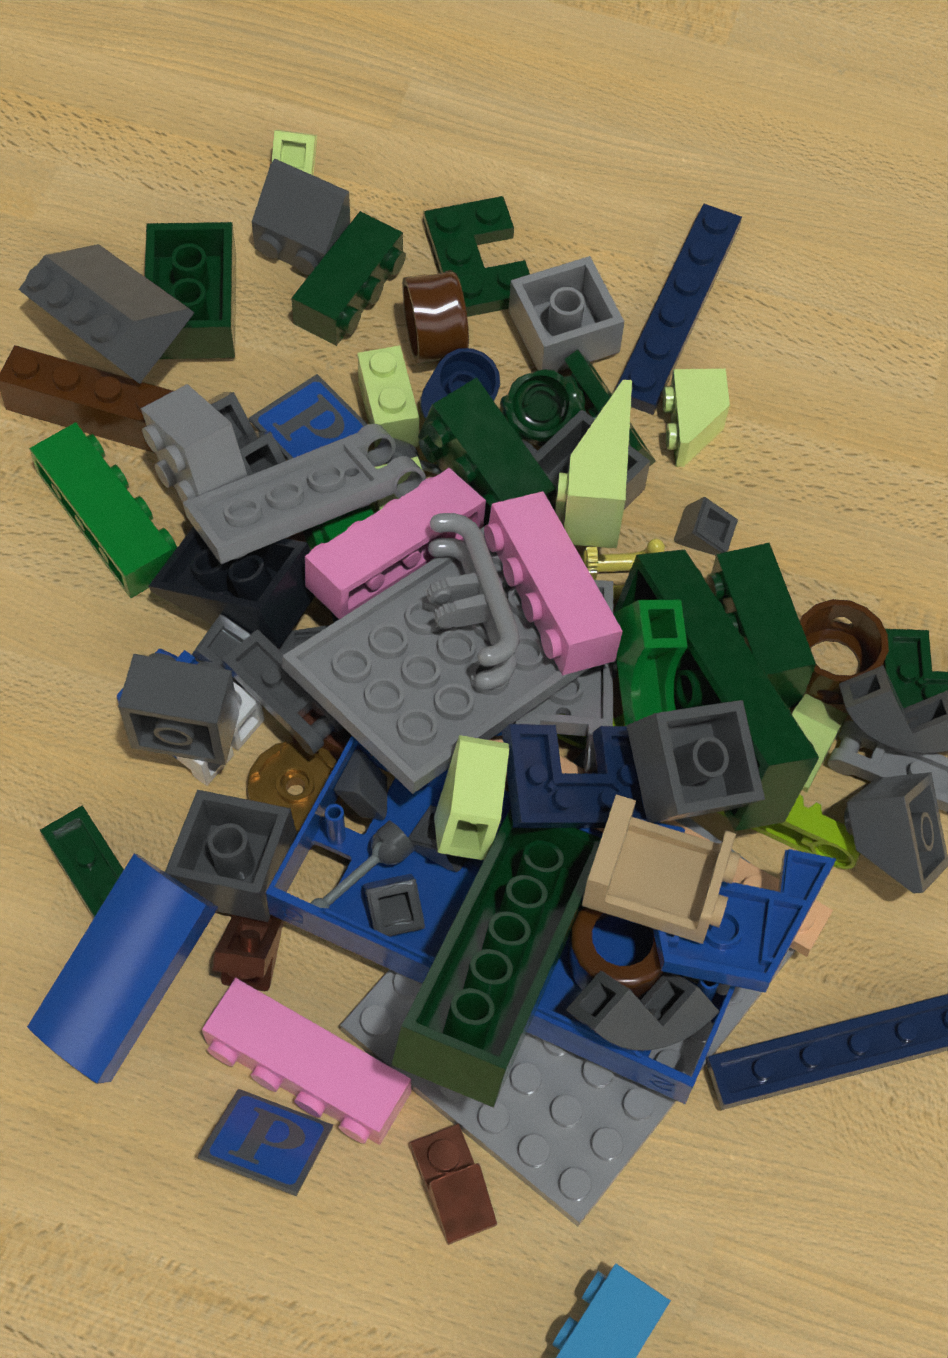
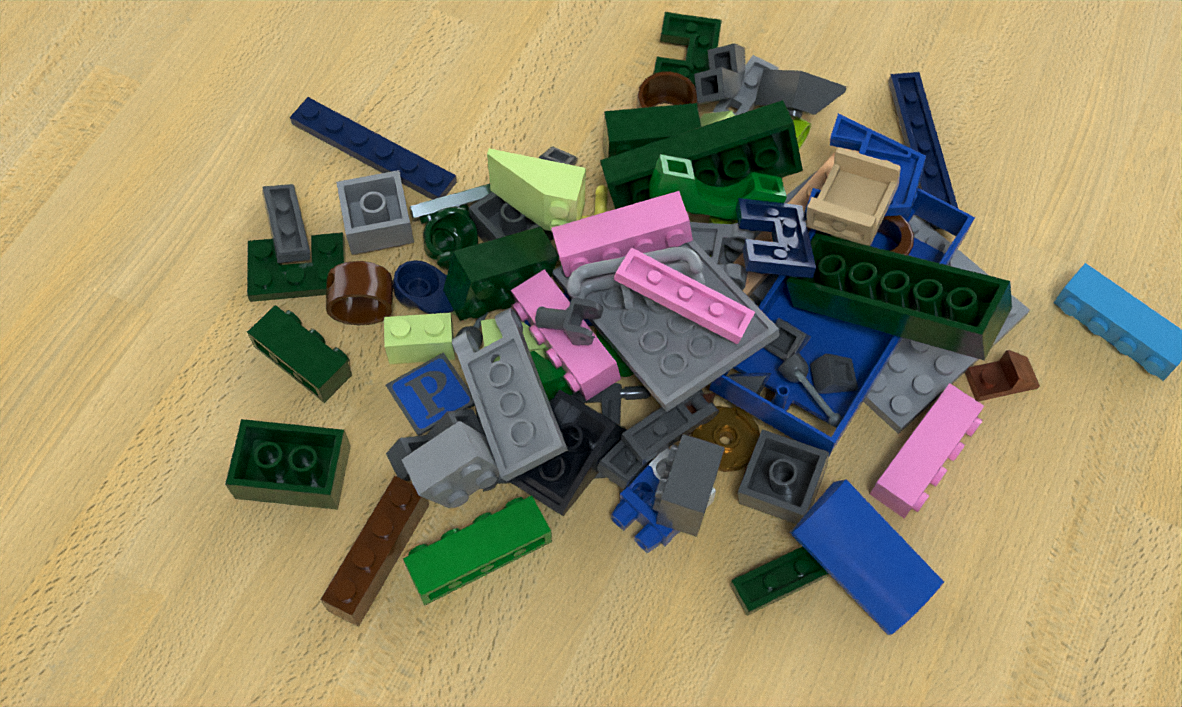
camera: 80 degrees left, 0 degrees up
(108, 306) = (301, 519): dark grey slope -> none
(248, 951) = (860, 471): copper slope -> none
(266, 1142) = (983, 479): piece -> none
(295, 149) = (165, 379): yellowish green plate -> none
(298, 216) = (243, 374): dark grey slope -> none
(392, 524) = (571, 319): none -> dark grey piece
(437, 647) = (684, 295): none -> bright pink plate
(472, 798) = (789, 300): yellowish green slope -> none
(535, 228) = (286, 223): none -> dark grey tile
(660, 1019) = (931, 231): dark grey brick -> none
(695, 761) = (779, 166): dark grey brick -> none
(697, 409) = (464, 149): yellowish green slope -> none

